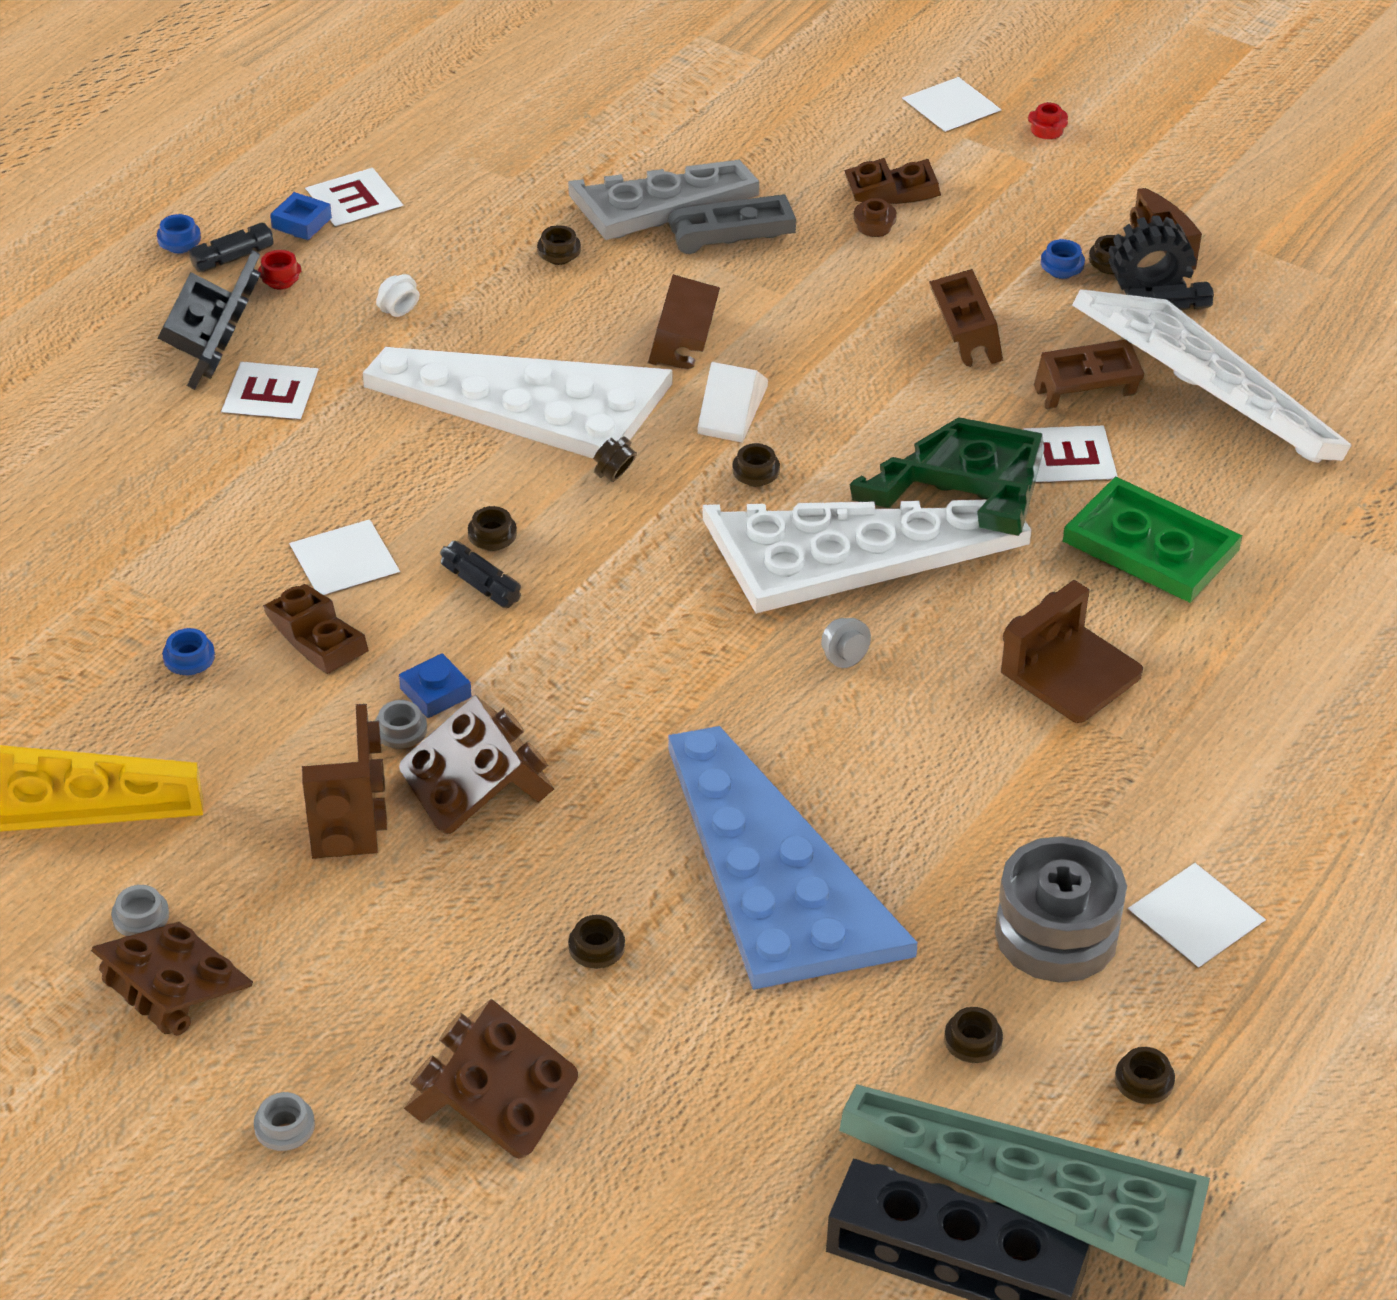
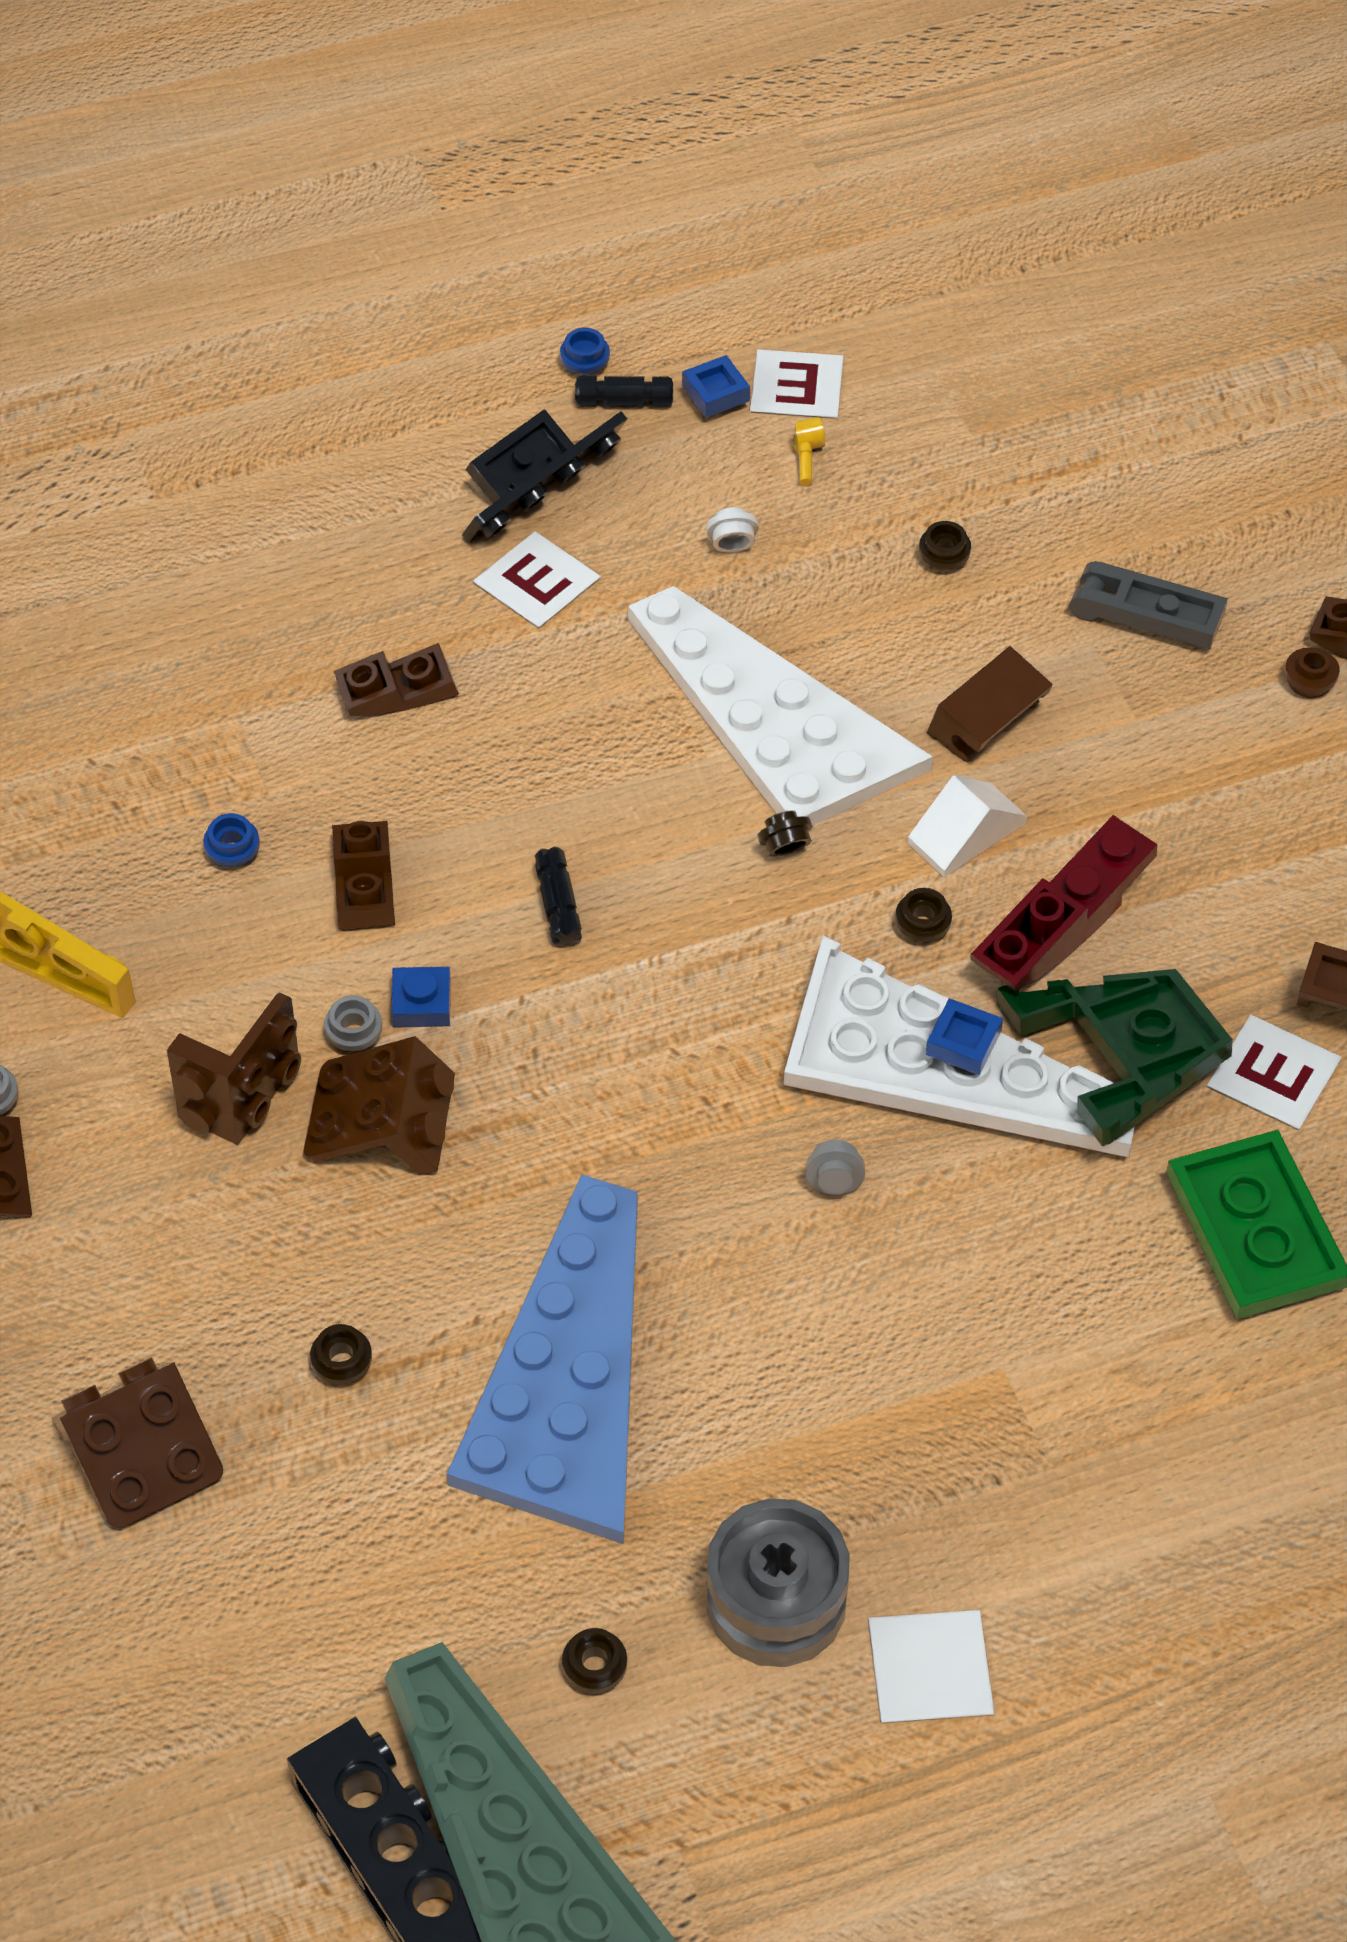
camera: 35 degrees right, 10 degrees up
(226, 498) = (382, 687): none -> reddish brown slope
(279, 269) = (646, 441): red plate -> none
(344, 557) = (456, 808): white sticker -> none
(398, 221) = (808, 436): none -> yellow hand
(492, 528) = (607, 840): dark brown plate -> none
(638, 204) = (1071, 532): light grey wing -> none
(852, 410) = (1068, 909): none -> dark red slope
(867, 513) = (964, 1036): none -> blue plate
(967, 315) = (1291, 850): reddish brown hinge -> none
(1063, 660) = (1039, 1312): reddish brown bracket -> none
(1148, 1064) = (716, 1785): dark brown plate -> none

